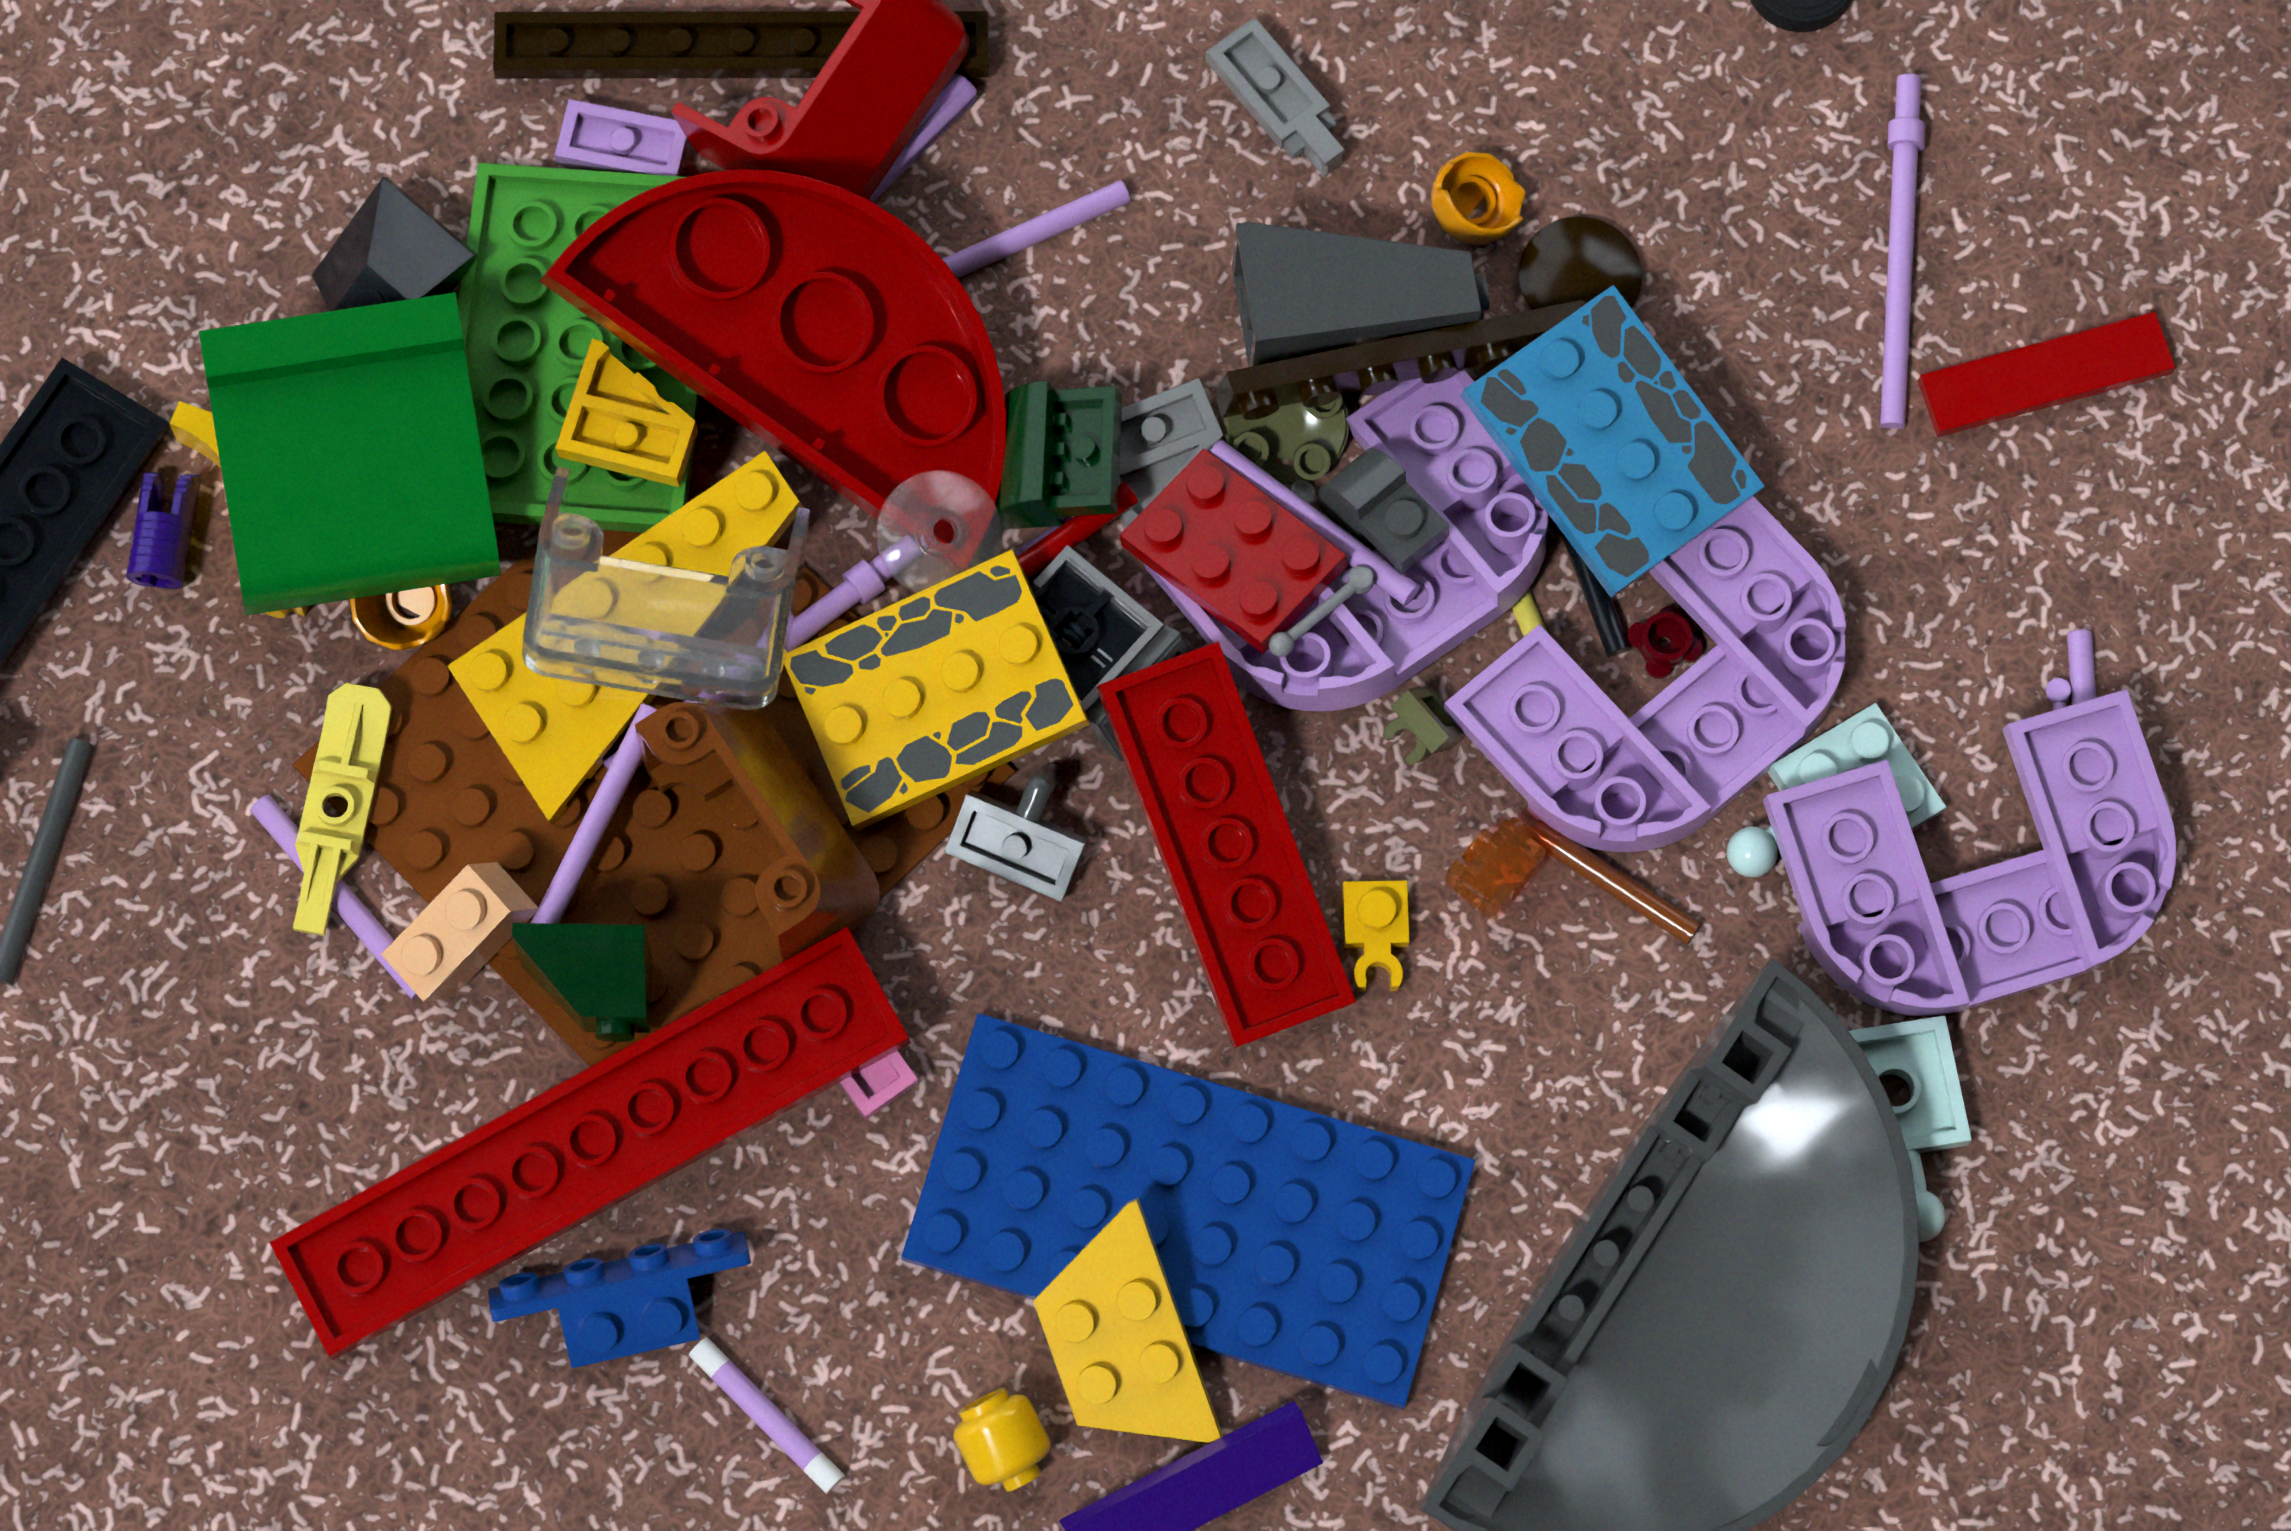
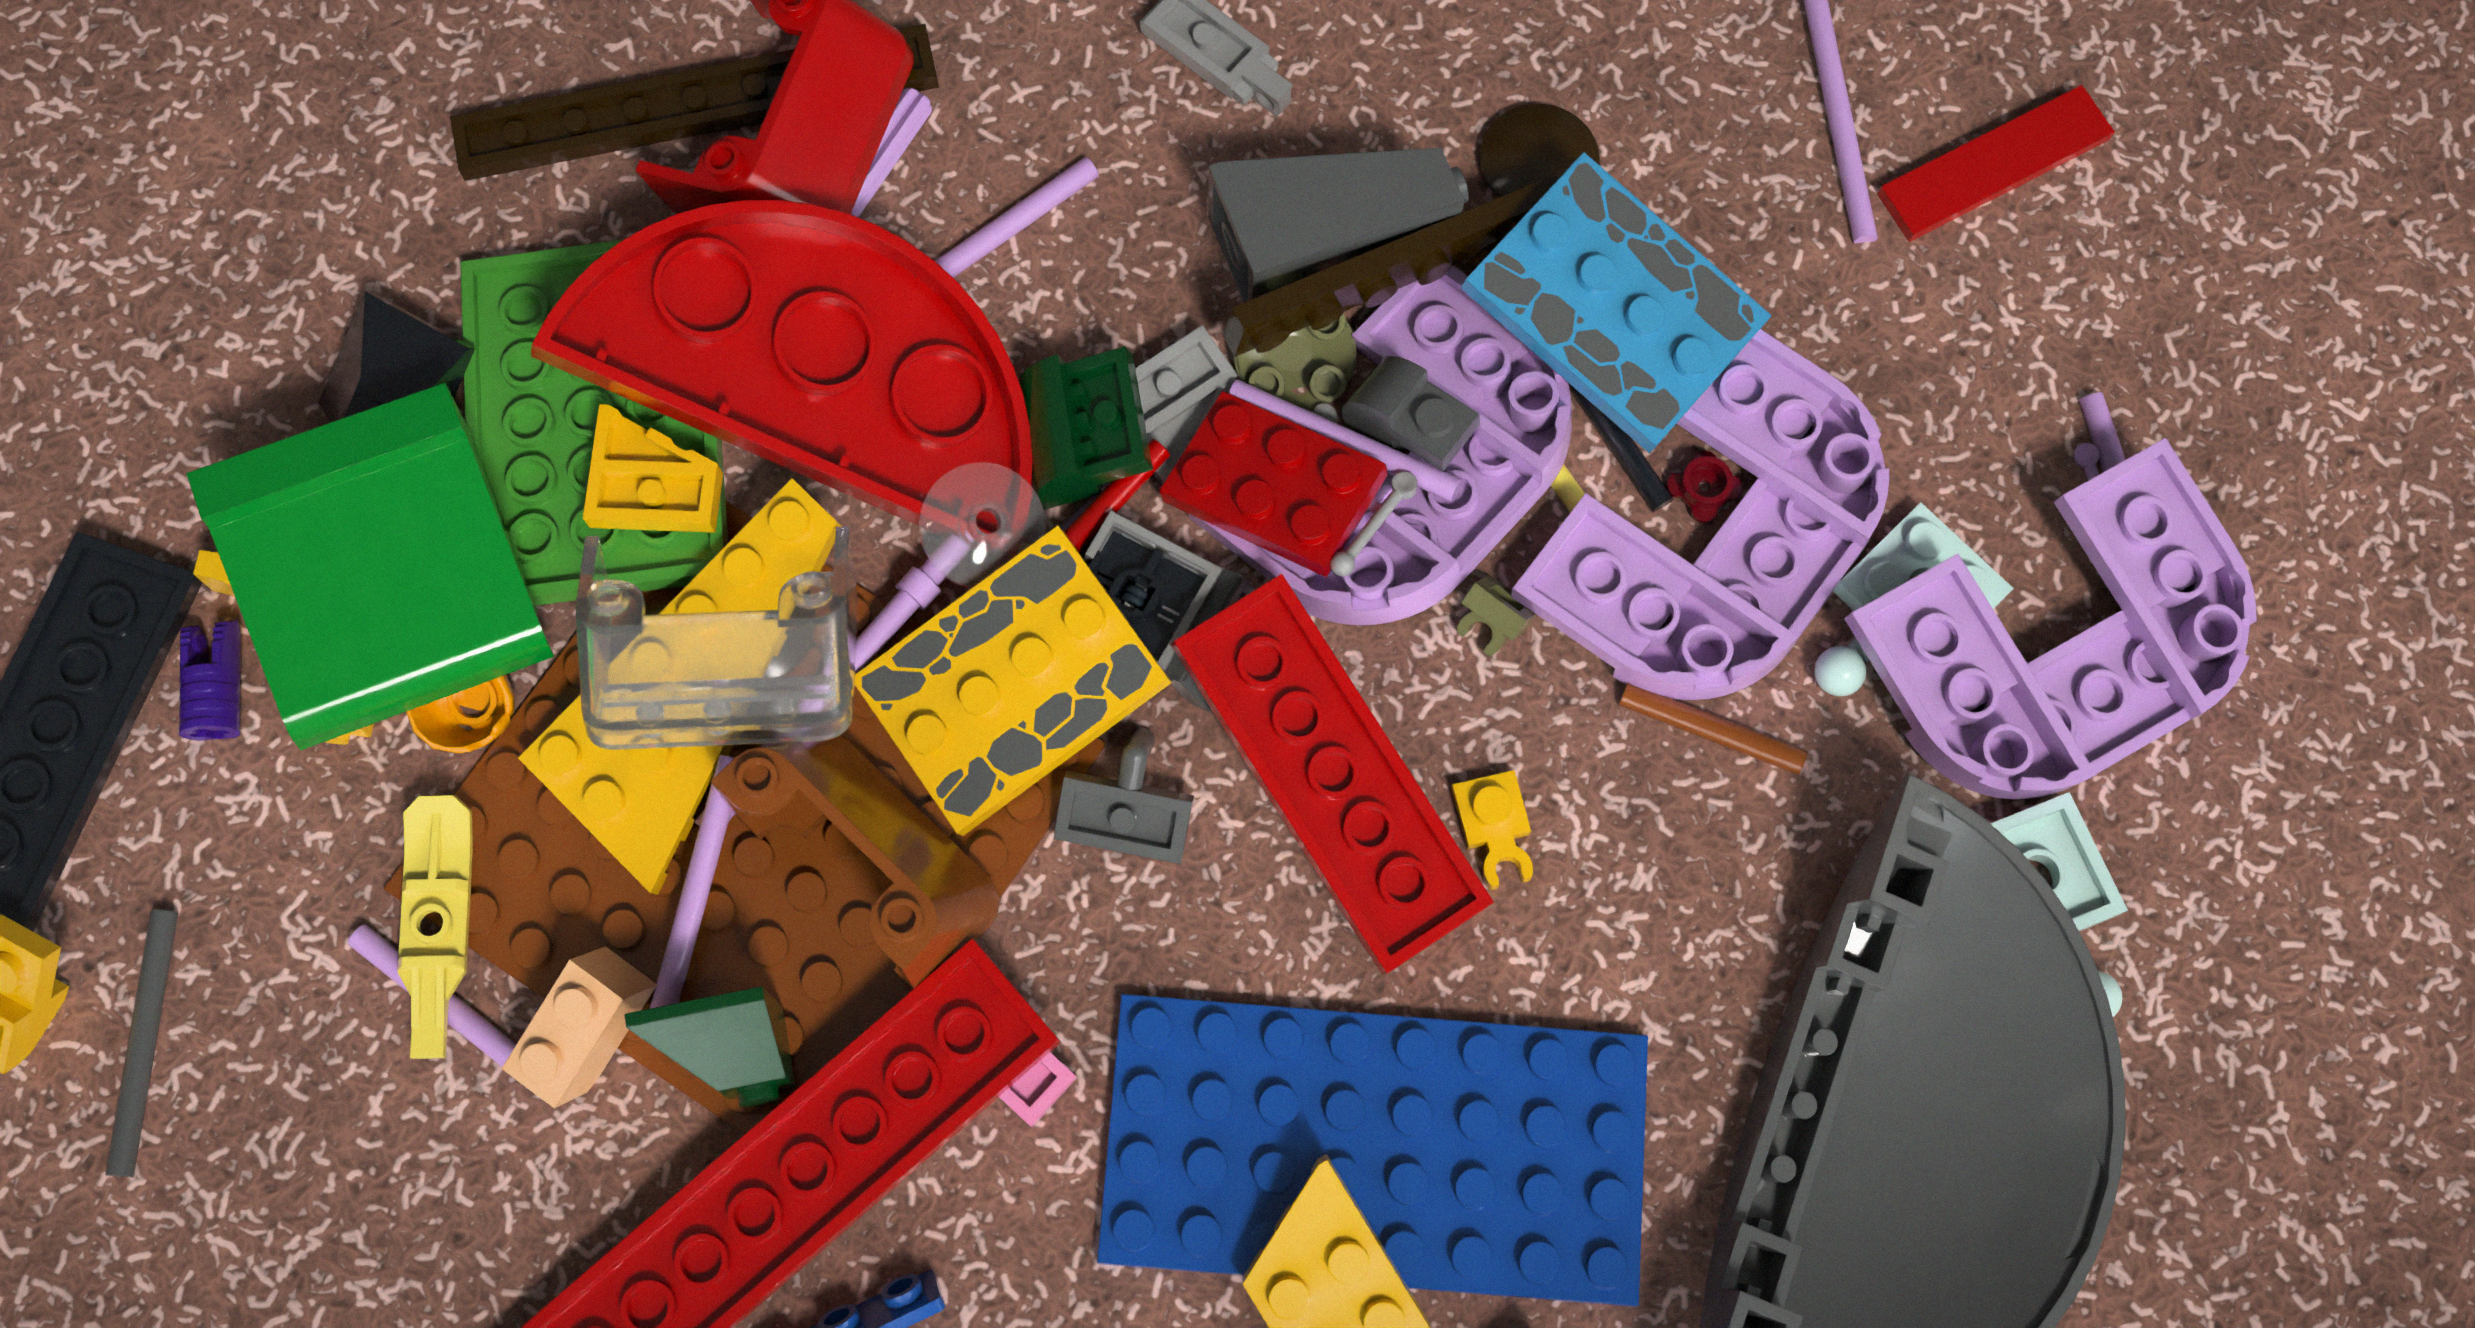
camera: 10 degrees left, 0 degrees up
(619, 141) = (592, 213): lavender plate -> none
(1461, 187) = (1409, 99): light orange hair -> none
(1497, 867) = (1600, 738): clear orange brick -> none

